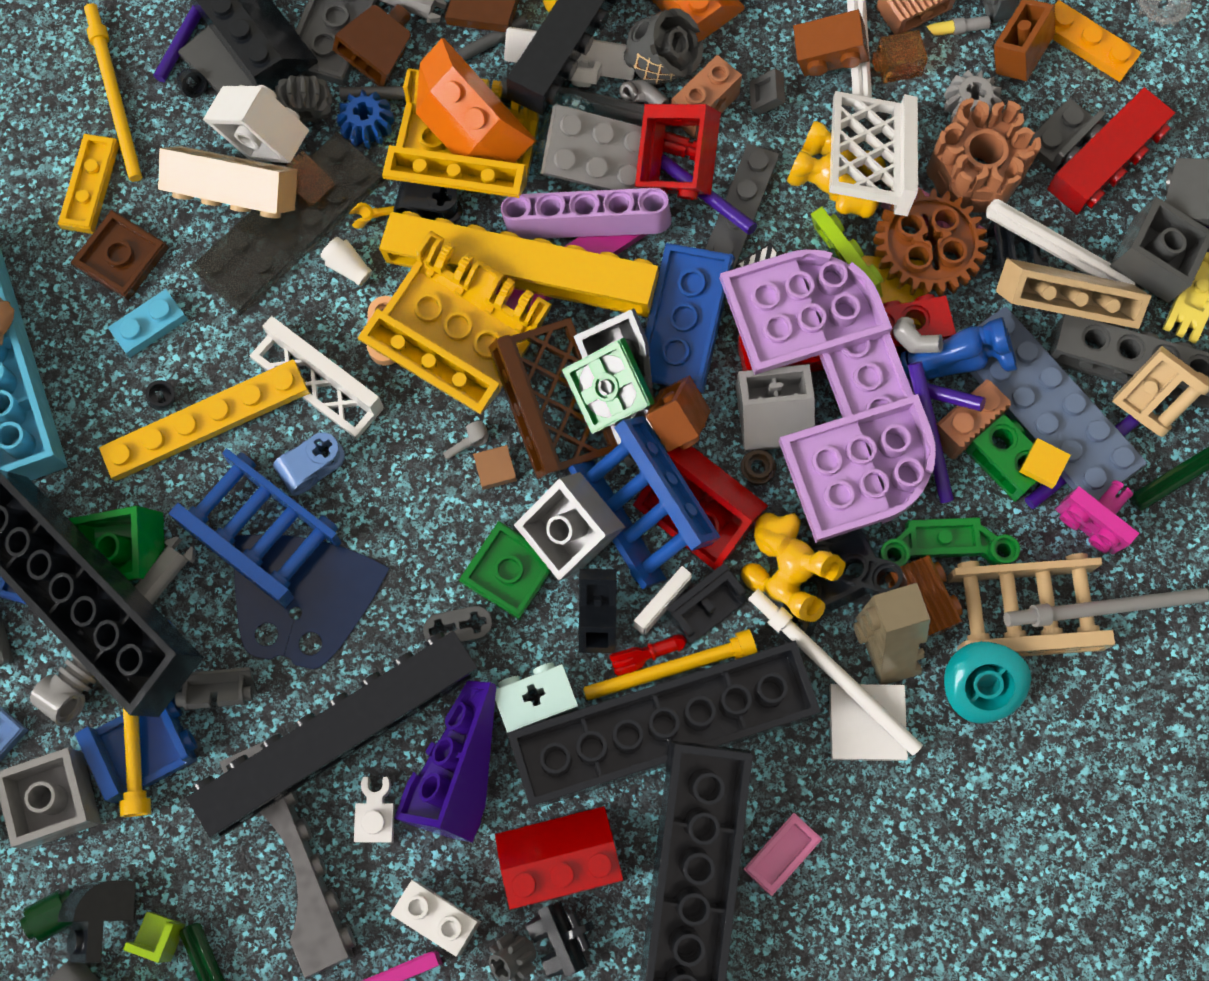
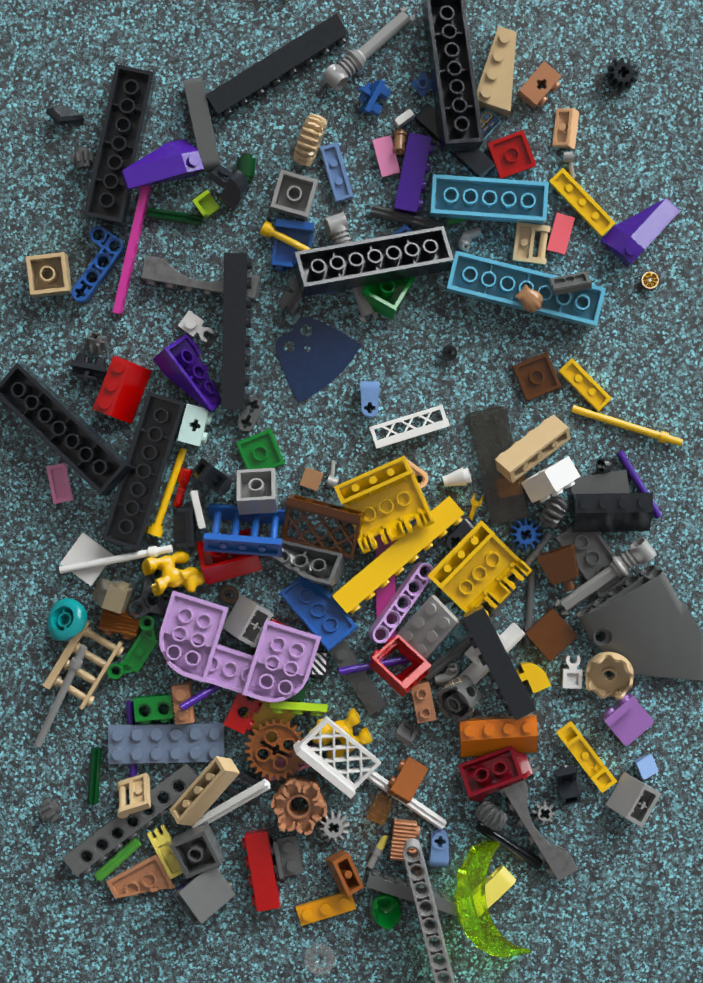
camera: 125 degrees right, 15 degrees up
(147, 323) = (492, 368): medium azure plate -> none
(203, 420) = (424, 365): yellow plate -> none
(249, 561) = (342, 343): blue fence -> none
(435, 918) = (133, 323): white brick -> none
(465, 110) = (487, 581): orange wedge -> none
(608, 386) = (306, 551): piece -> none
(679, 414) = (273, 574): dark orange brick -> none
(913, 341) = (231, 701): light grey arm -> none
(940, 470) = (205, 686): dark purple bar -> none
(967, 351) = (213, 720): blue piece -> none
(1044, 463) = (138, 716): yellow tile -> none
(1099, 517) = (99, 723): dark pink plate -> none

